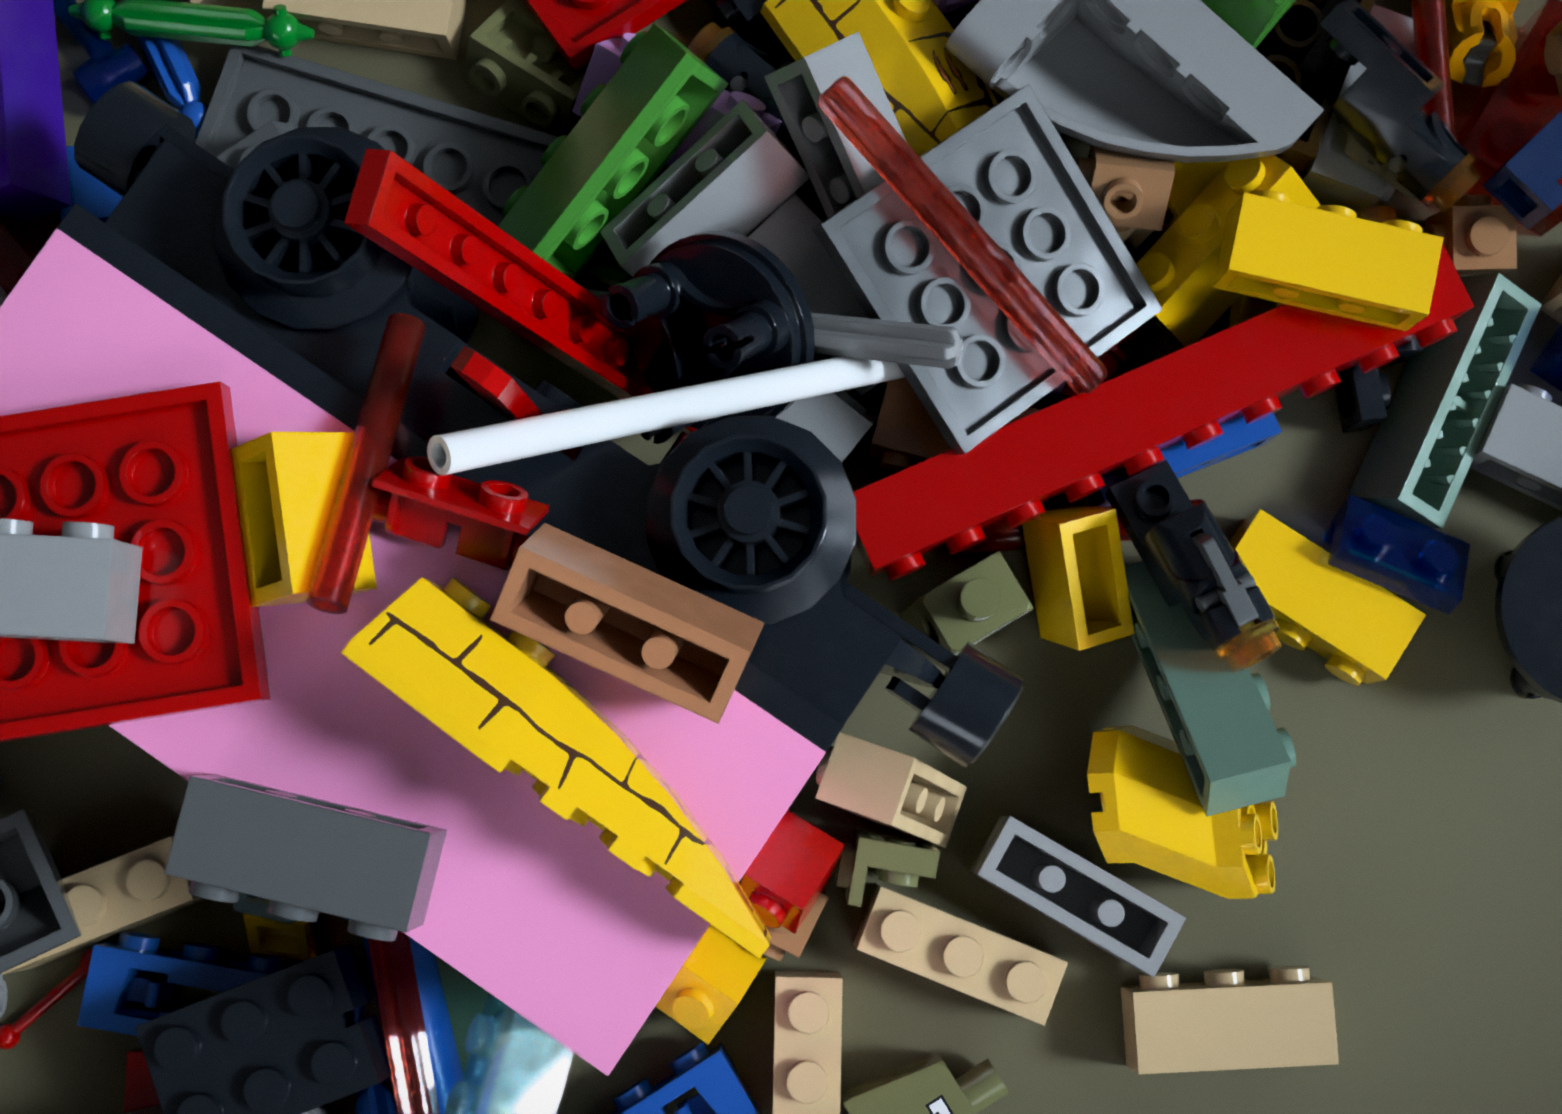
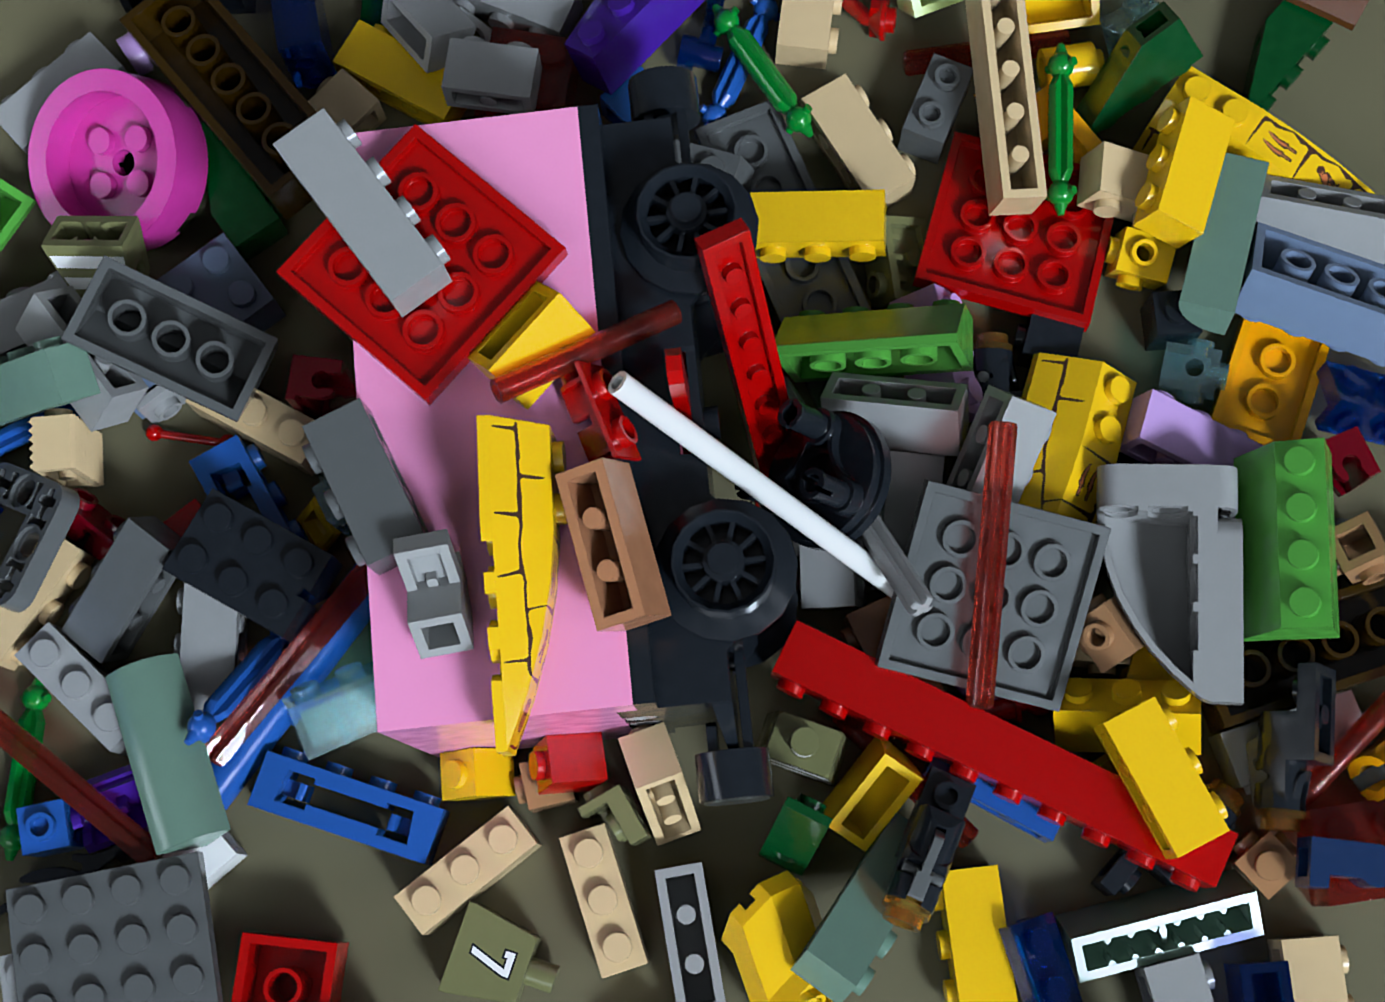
camera: 55 degrees right, 5 degrees down
(114, 809) = (316, 383): none -> dark red hinge
(435, 92) = (820, 225): none -> yellow brick
(507, 876) = (436, 593): none -> light grey brick
(1062, 690) = (796, 834): none -> dark green slope

